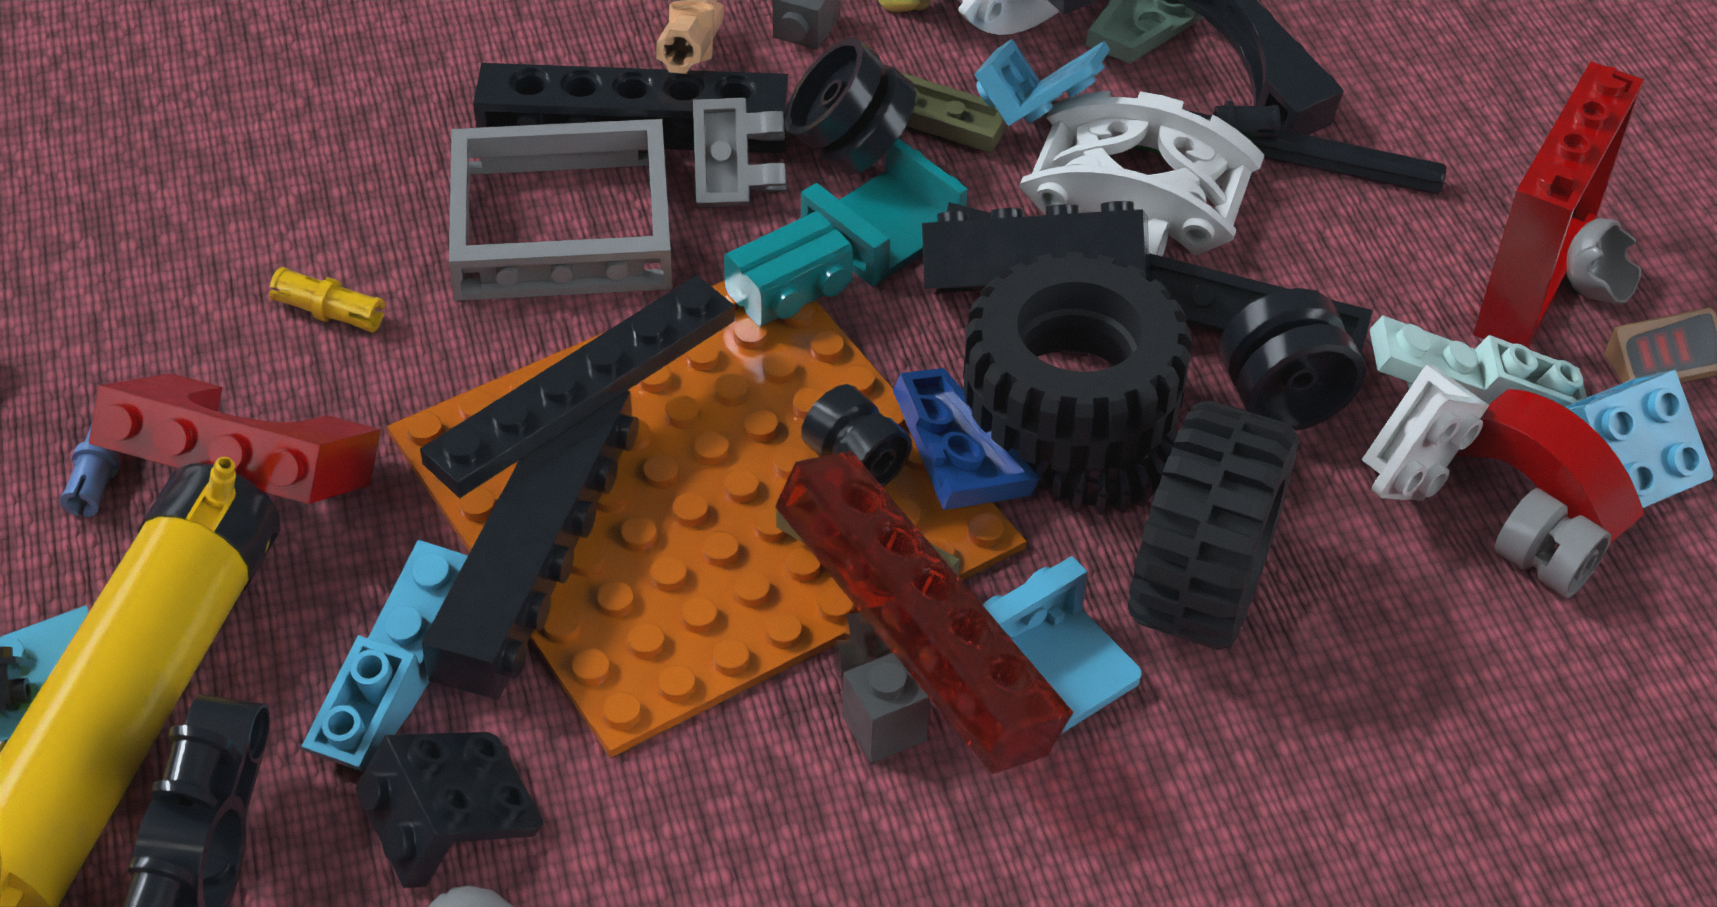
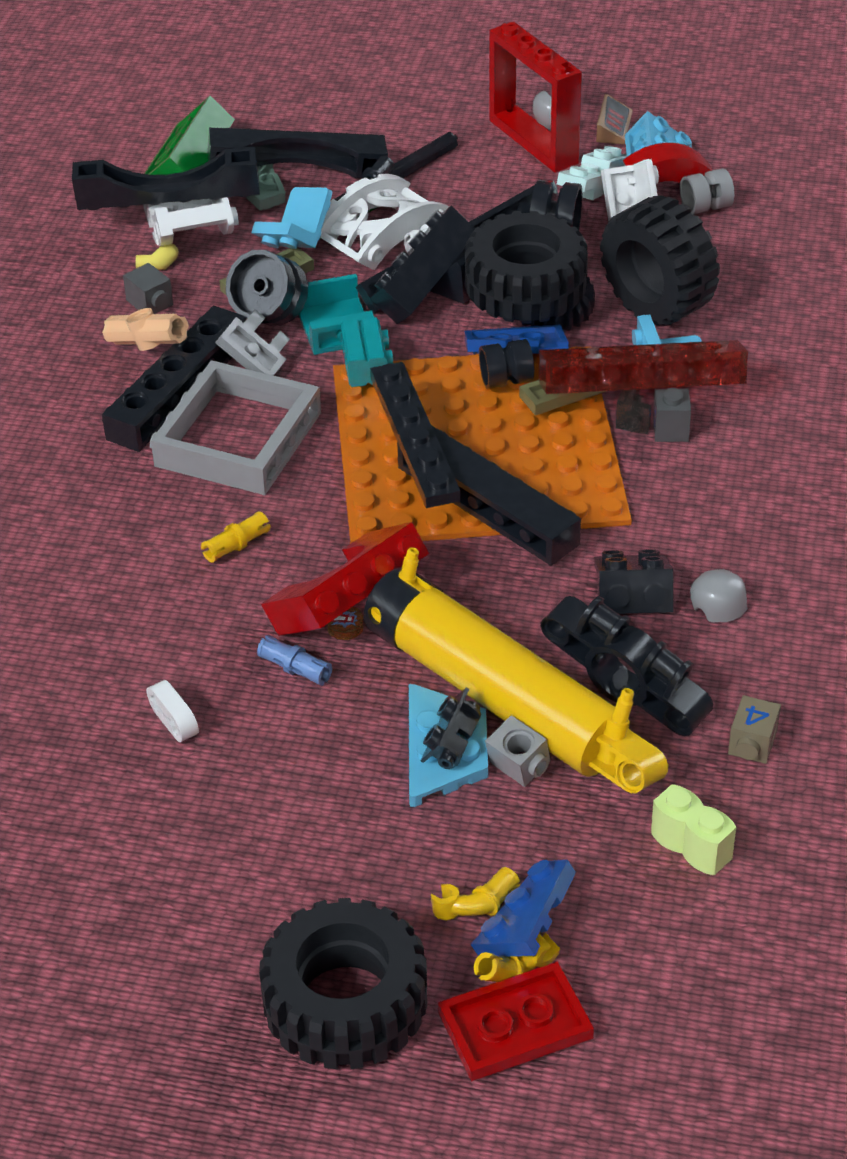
camera: 60 degrees left, 5 degrees down
(388, 668) = (521, 569): medium azure slope -> none

